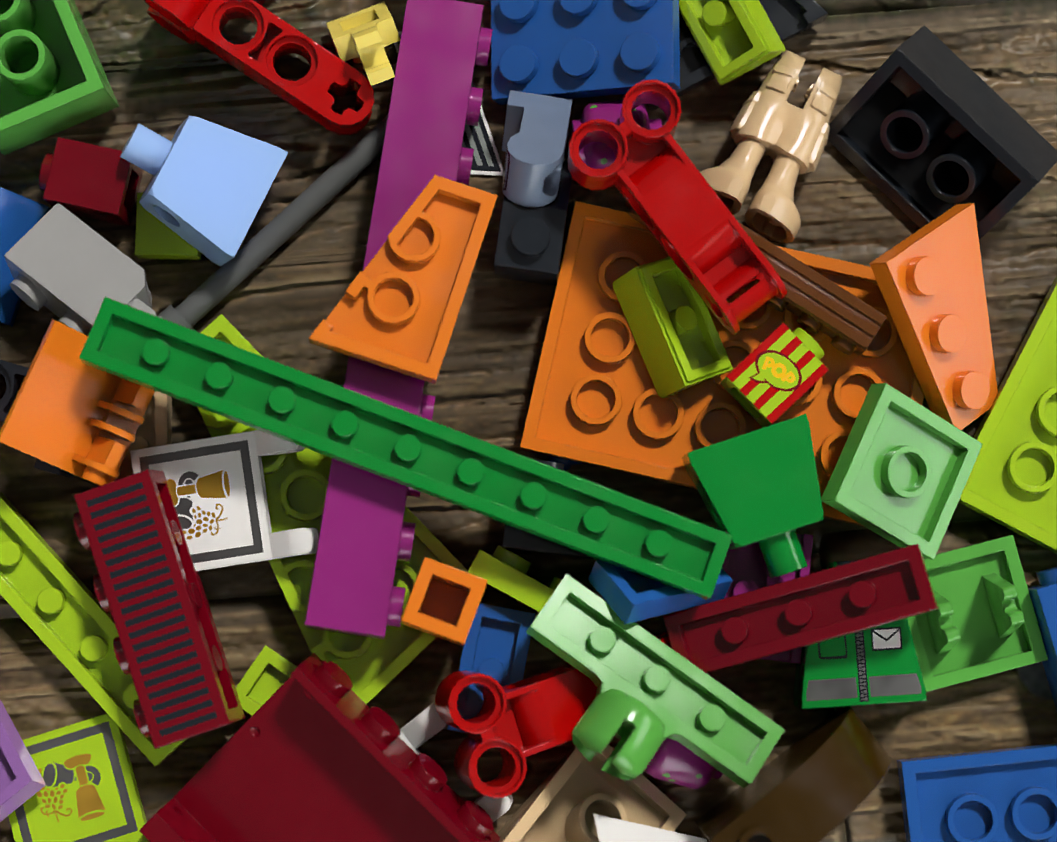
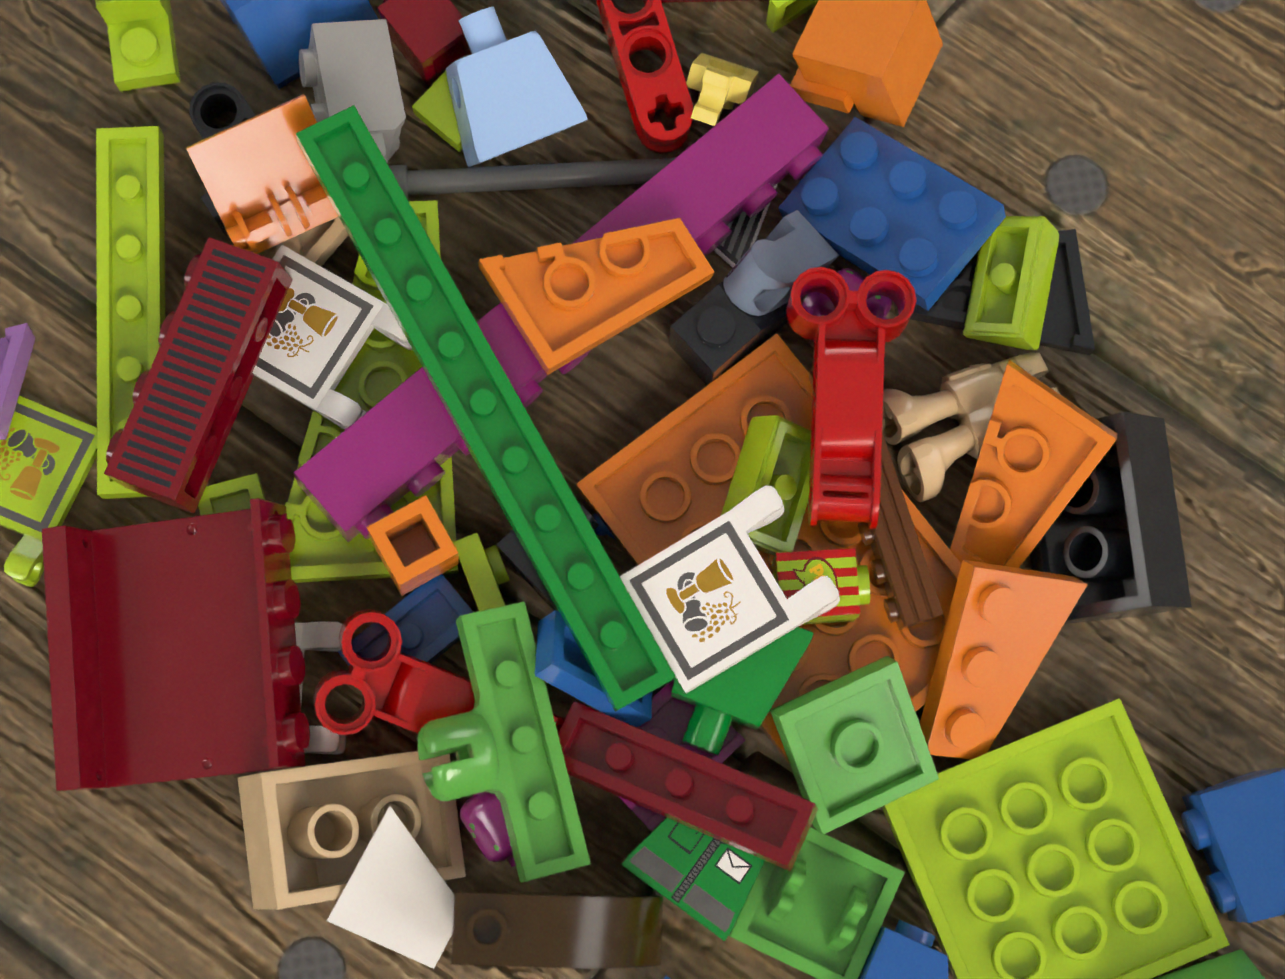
camera: 40 degrees right, 5 degrees down
(711, 449) = (716, 598): none -> white flag
(858, 154) = (1027, 470): none -> orange wing

